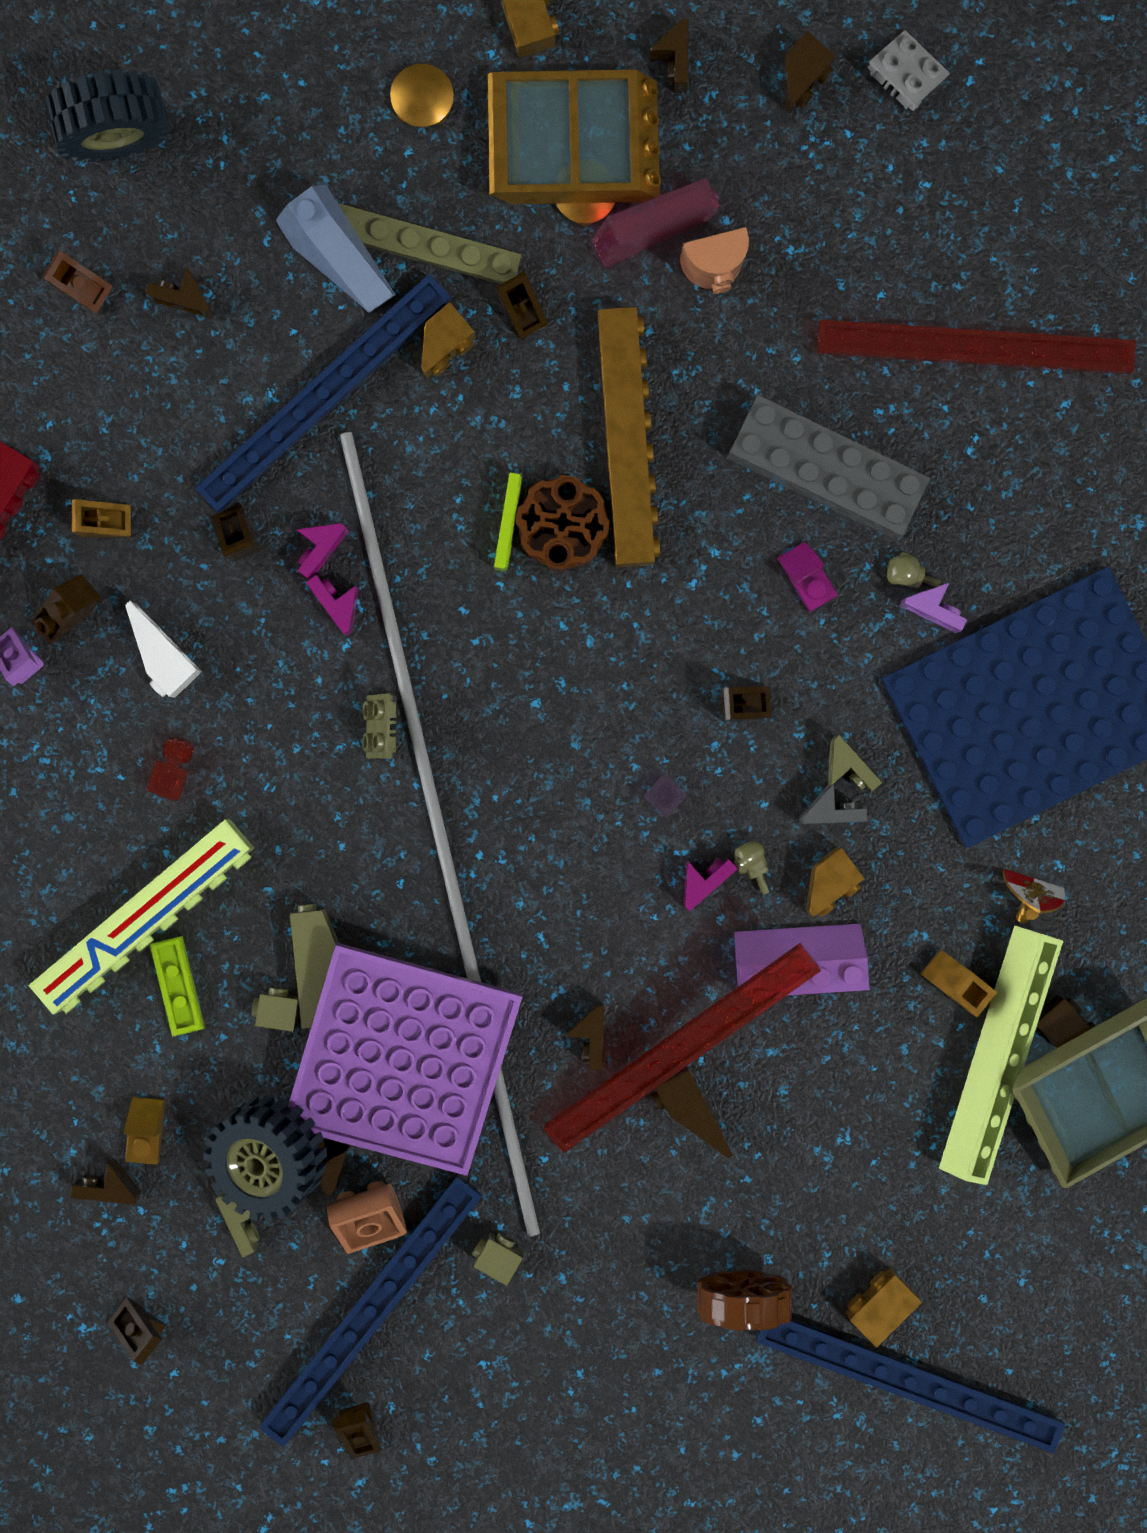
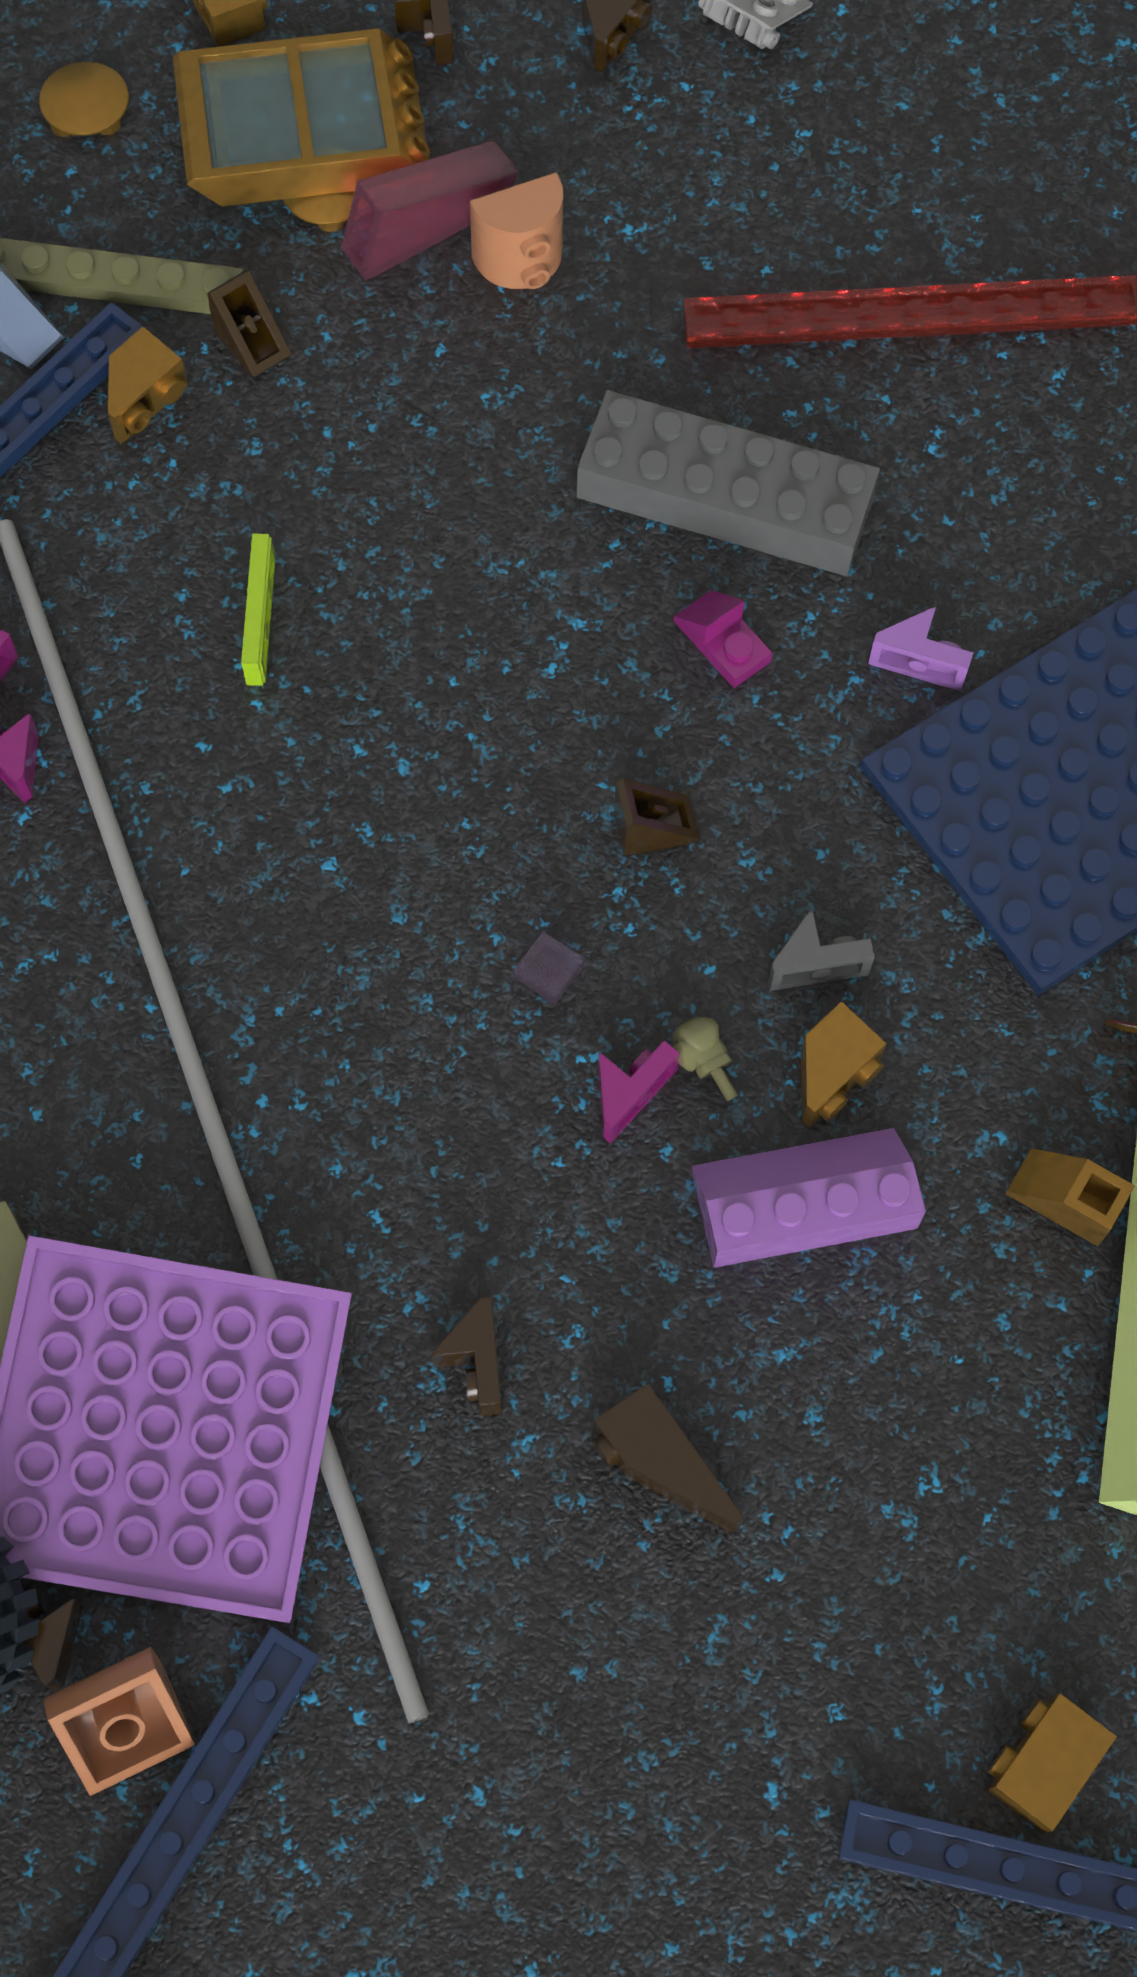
camera: 10 degrees left, 20 degrees down
(377, 739) = (84, 905): olive hinge -> none
(497, 1257) = (357, 1762): olive brick -> none
(585, 500) = (322, 583): reddish brown connector -> none
(626, 437) = (425, 484): pearl gold brick -> none
(682, 1047) = (626, 1347): clear red plate -> none
(744, 1300) = (803, 1765): reddish brown connector -> none
(843, 759) = (828, 879): olive slope -> none
(907, 572) = (869, 610): olive piece -> none

